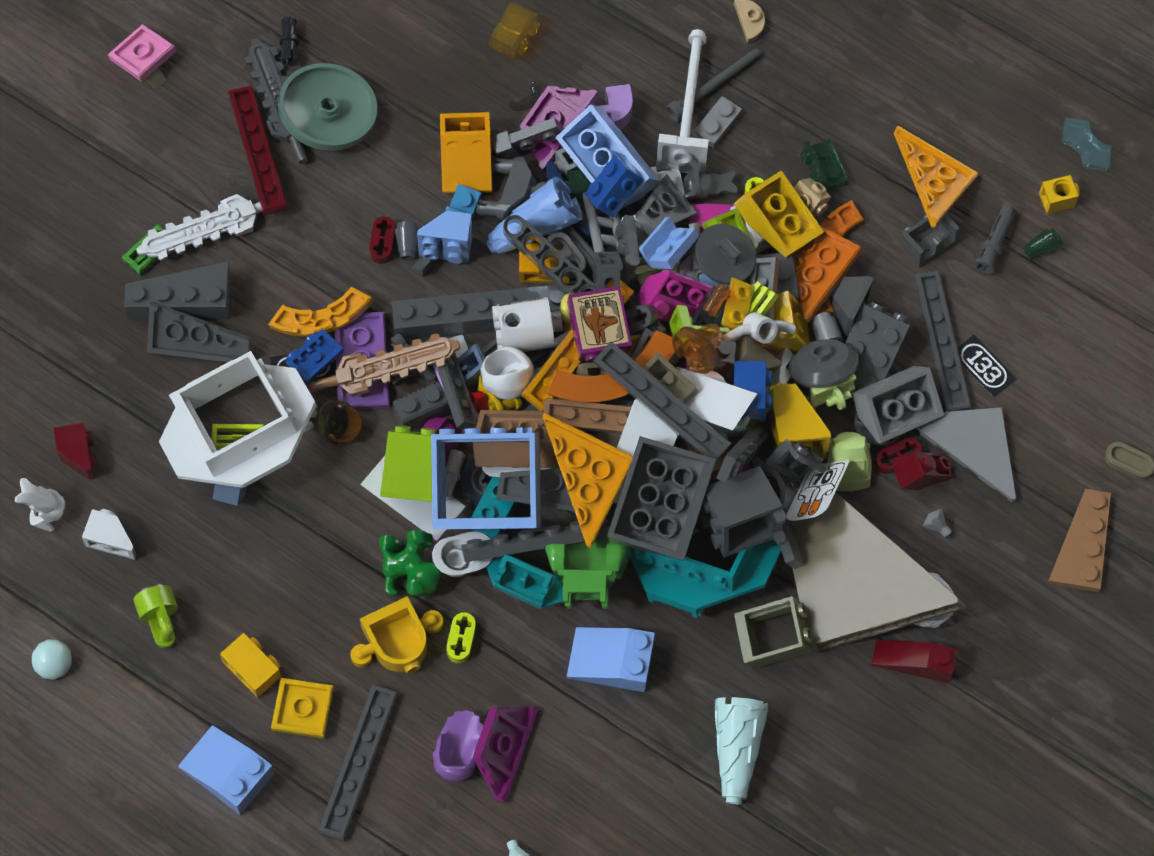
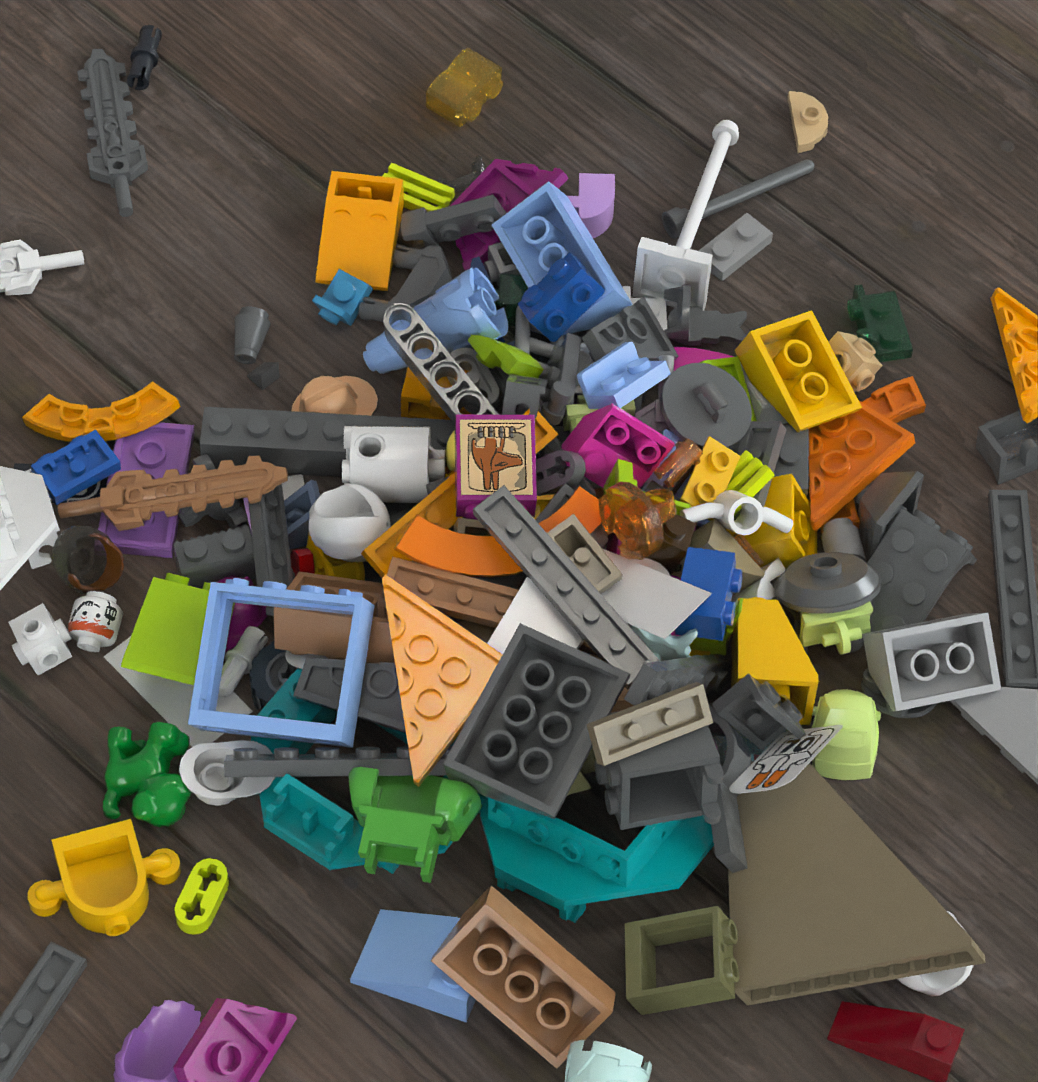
camera: 10 degrees right, 10 degrees down
(257, 150) = (64, 189): dark red tile -> none
(319, 482) = (44, 646): none -> white brick
(327, 106) = (176, 144): sand green dish -> none
(351, 462) = (95, 621): none -> white head
(377, 239) = (207, 328): dark red beam -> none
(447, 238) = (305, 335): light blue slope -> none
(474, 277) = (337, 396): none -> light nougat piece
(498, 111) = (420, 188): none -> neon yellow tile
(586, 236) = (507, 357): none -> lime slope
(679, 660) = (524, 977): none -> medium nougat slope
(735, 492) = (649, 723): none -> dark tan plate
(895, 450) = (921, 739): dark red beam -> none
(922, 470) = (954, 764): dark red slope -> none
(936, 522) = (964, 842): light grey rock -> none

